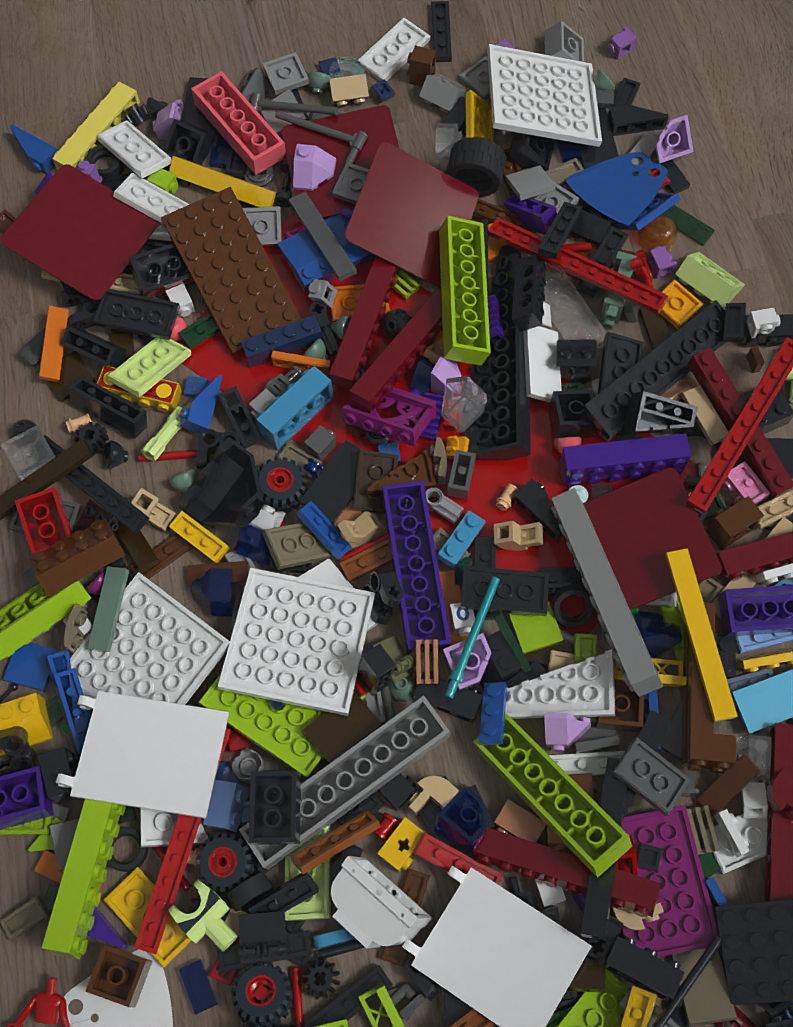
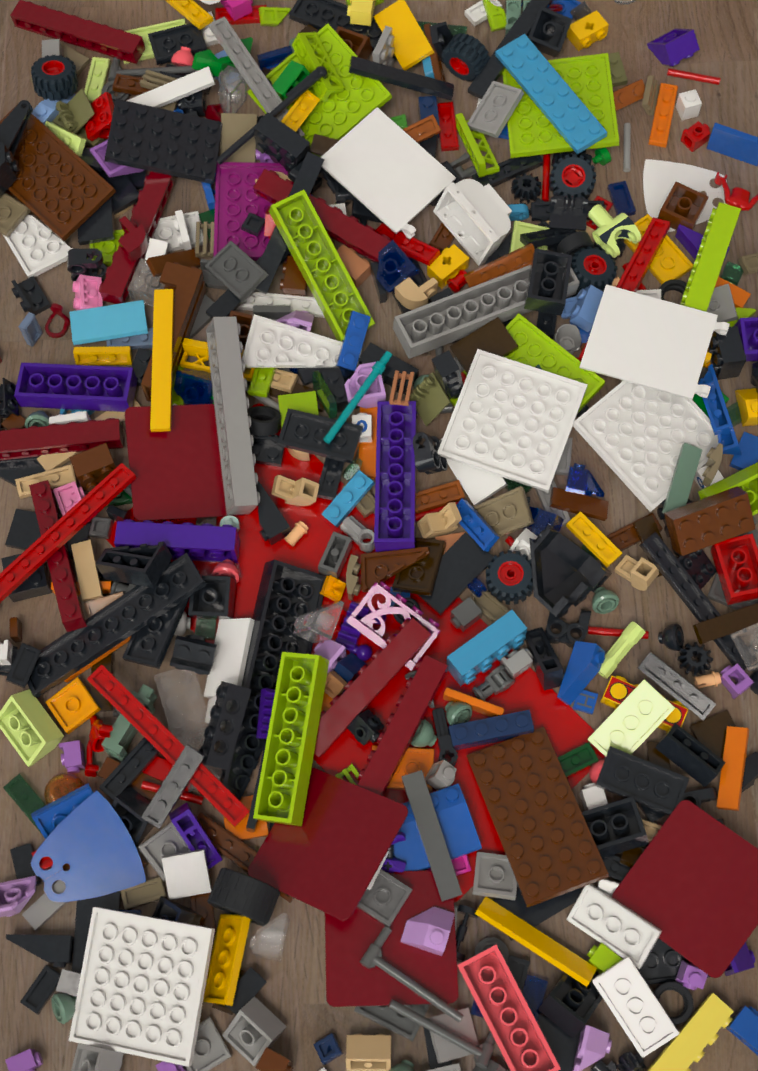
camera: 170 degrees left, 0 degrees up
(51, 424) = (743, 681): none -> medium lavender brick

